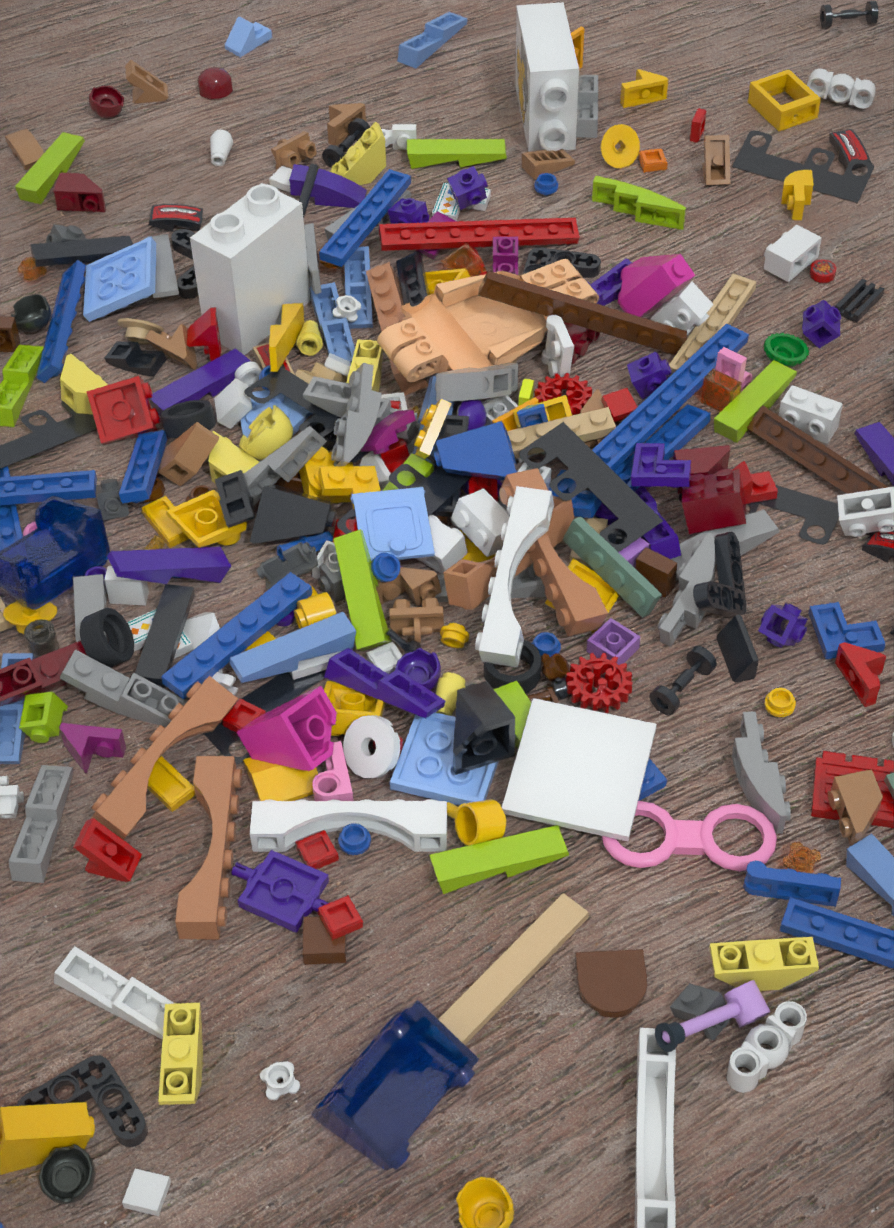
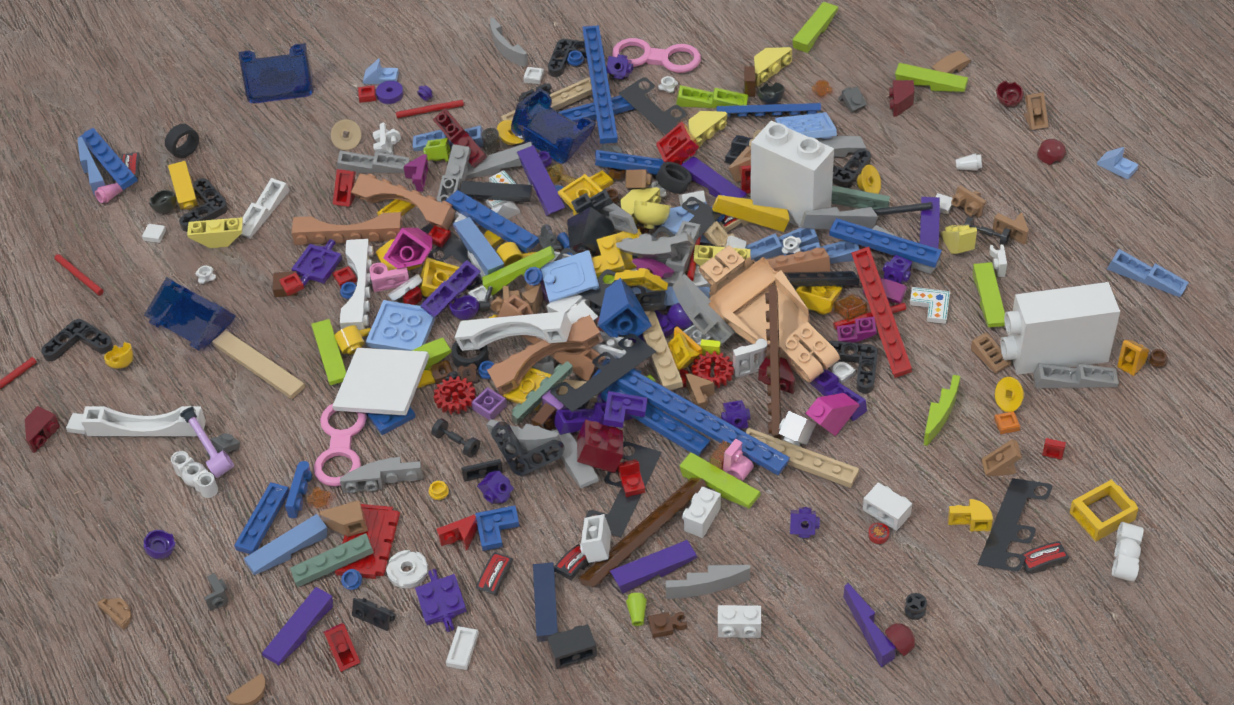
camera: 90 degrees right, 0 degrees up
(83, 250) = (839, 107): black tile -> none
(118, 632) = (483, 175): black tyre -> none
(168, 215) = (886, 150): slope -> none
(309, 339) = (762, 230): light yellow cone -> none
(447, 690) = (447, 323): light yellow cone -> none
(468, 187) = (929, 297): dark purple brick -> none
(482, 728) = (412, 330): black slope -> none
(532, 415) = (672, 340): blue slope -> none
(546, 184) = (959, 354): blue plate -> none
(612, 980) = (247, 408): reddish brown tile -> none
(620, 404) = (692, 392): red tile -> none
(645, 89) = (1097, 412): yellow slope -> none
(704, 460) = (643, 445): dark red slope -> none
(768, 962) = (243, 467): light yellow slope -> none
(786, 349) = (774, 500): green hat -> none
(855, 297) = (847, 553): black tile -> none

